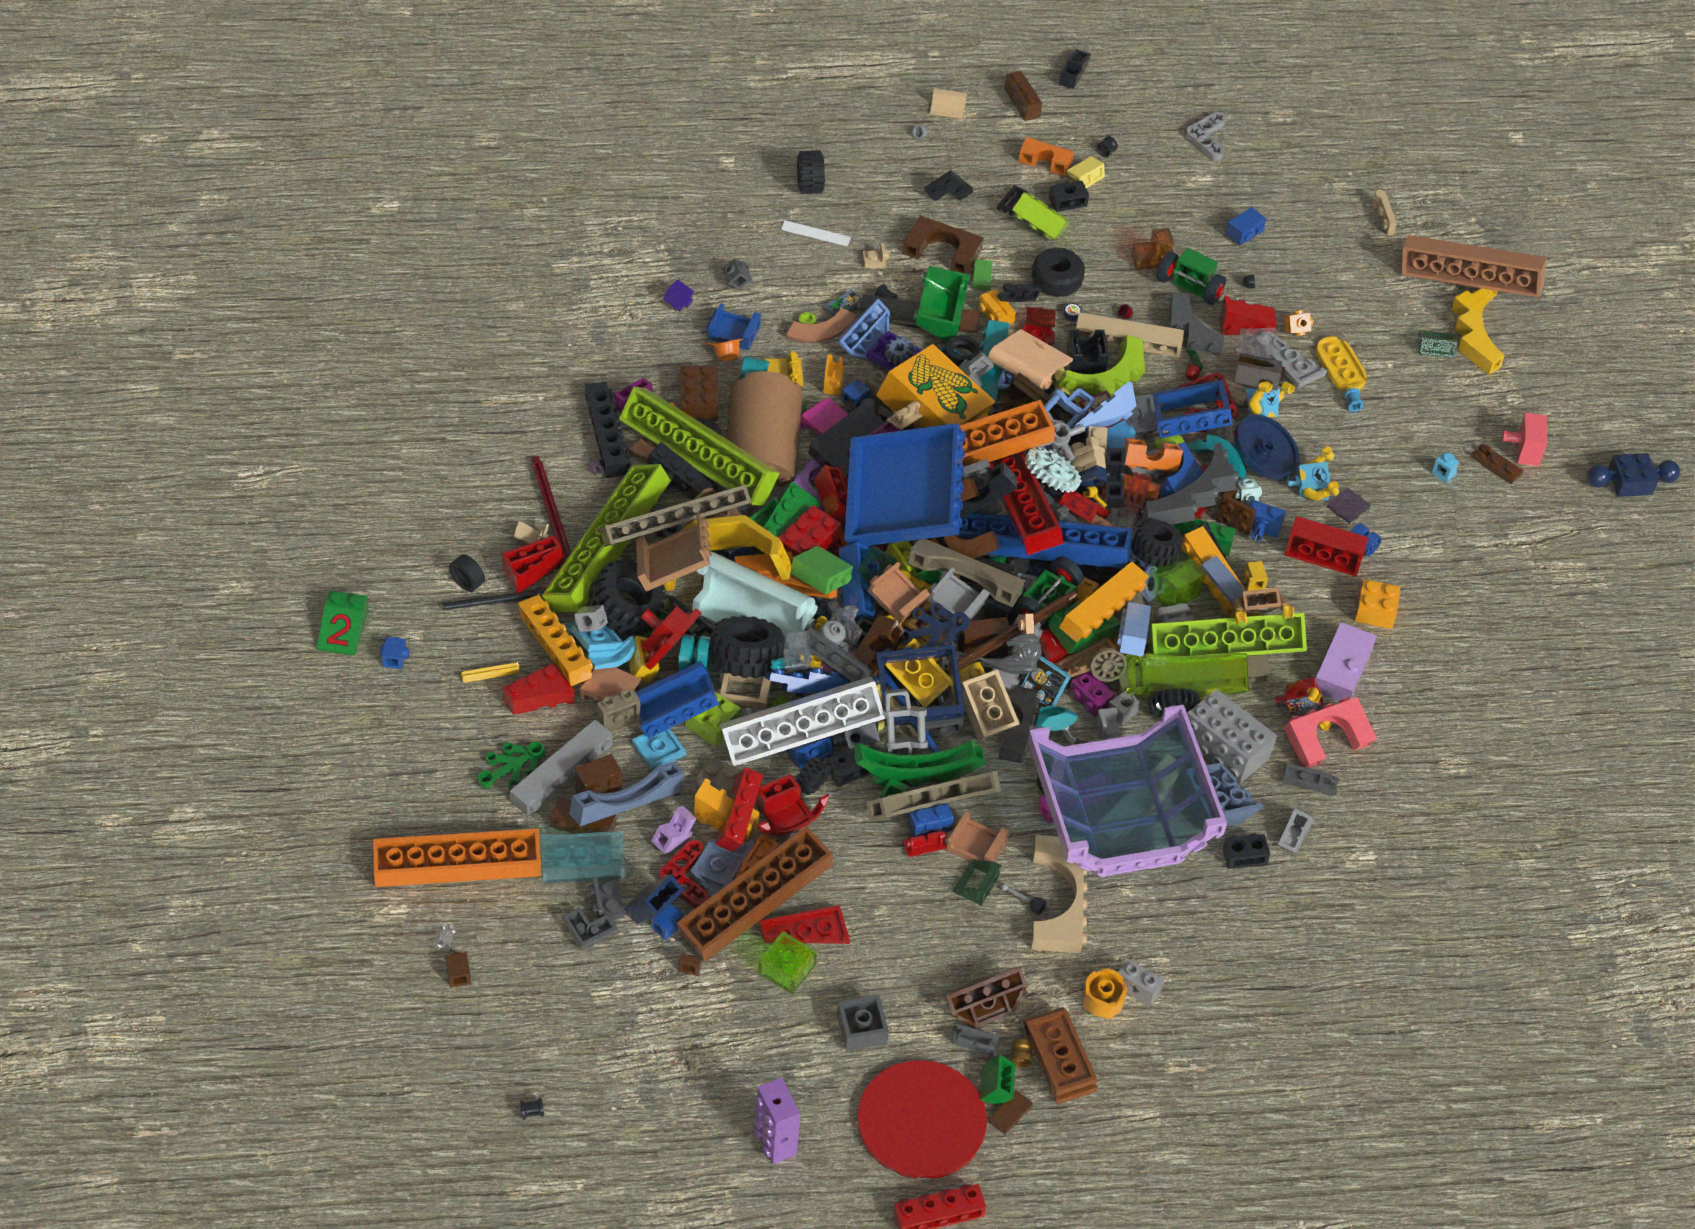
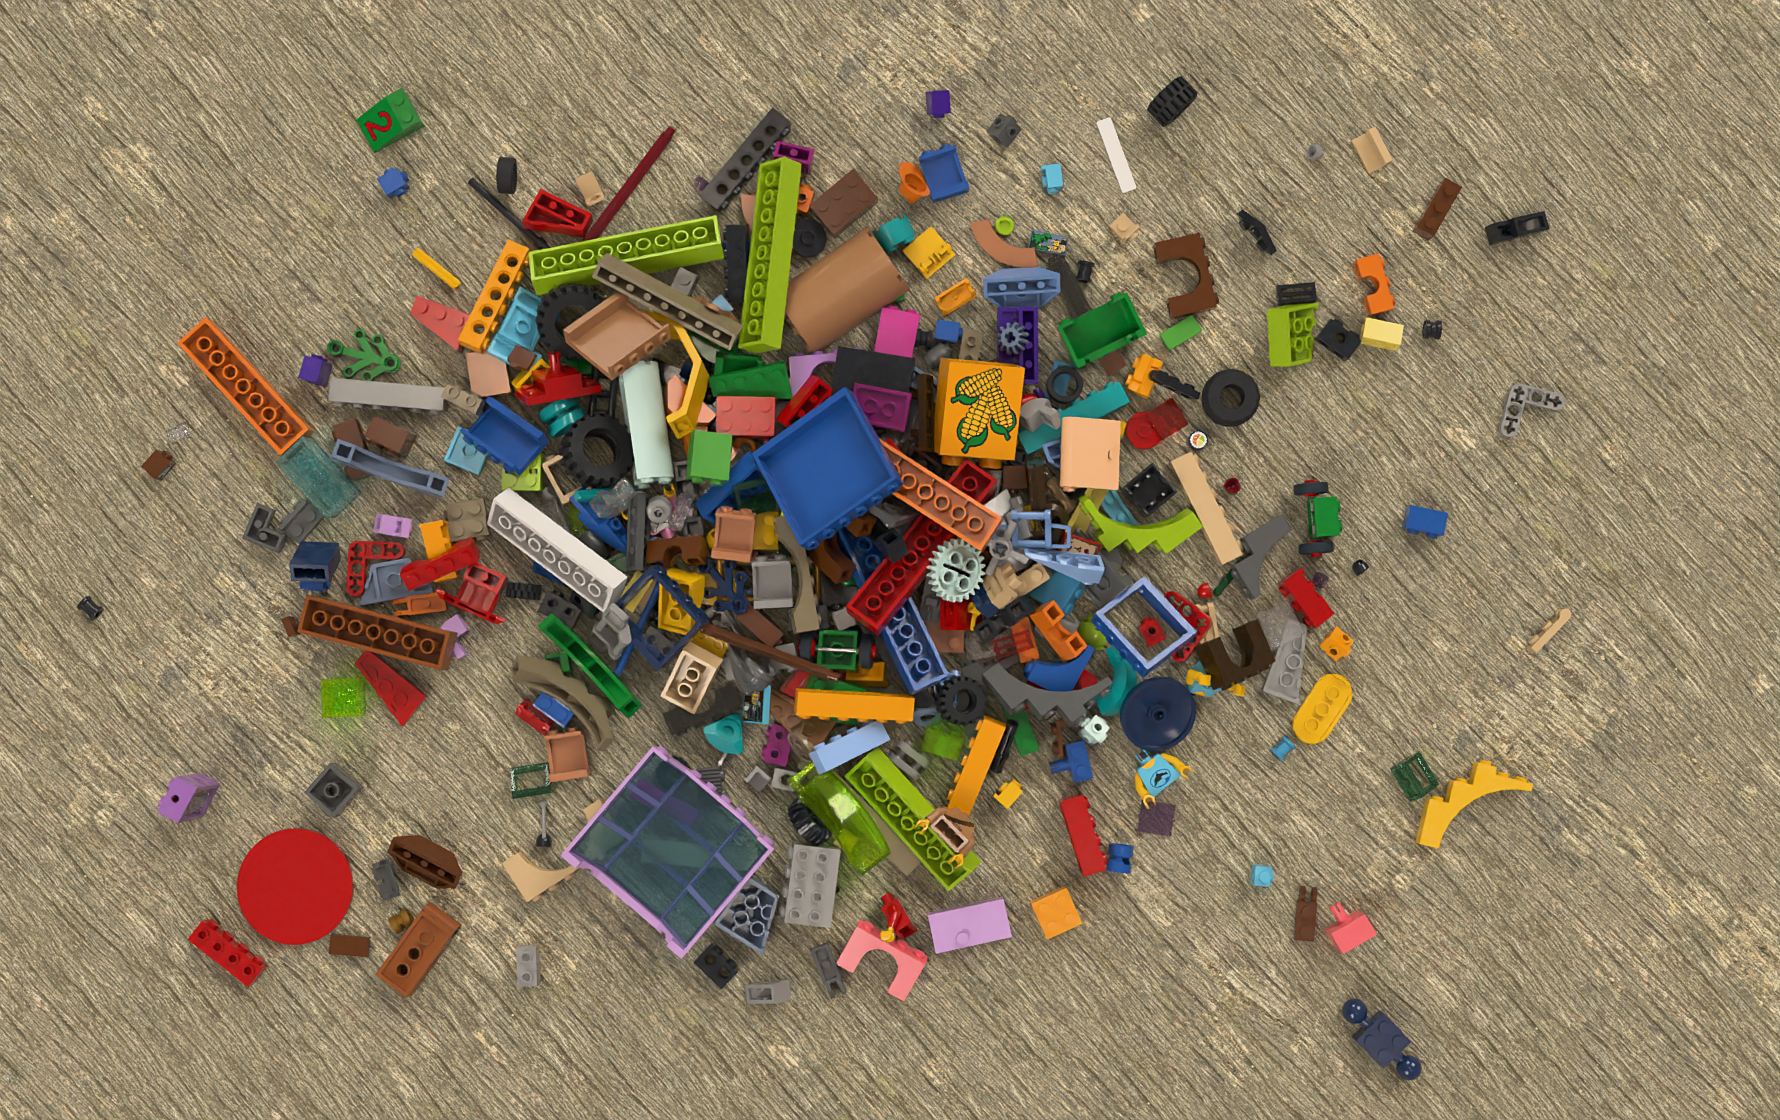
camera: 60 degrees right, 35 degrees up
(494, 797) = (315, 370): none -> dark purple brick
(595, 613) = (523, 313): light grey brick -> none
(625, 647) = (521, 358): none -> reddish brown slope
(799, 271) = (1052, 179): none -> medium azure brick
(906, 415) = (922, 405): tan hinge -> none
(997, 1080) = (363, 920): green brick -> none
(1026, 624) = (772, 662): light nougat plate -> none
(1104, 993) = (492, 957): light orange brick -> none
(1149, 254) = (1322, 462): clear orange brick -> none
(1222, 579) = (965, 782): sand blue tile -> none
(1474, 266) = (1524, 760): nougat brick -> none

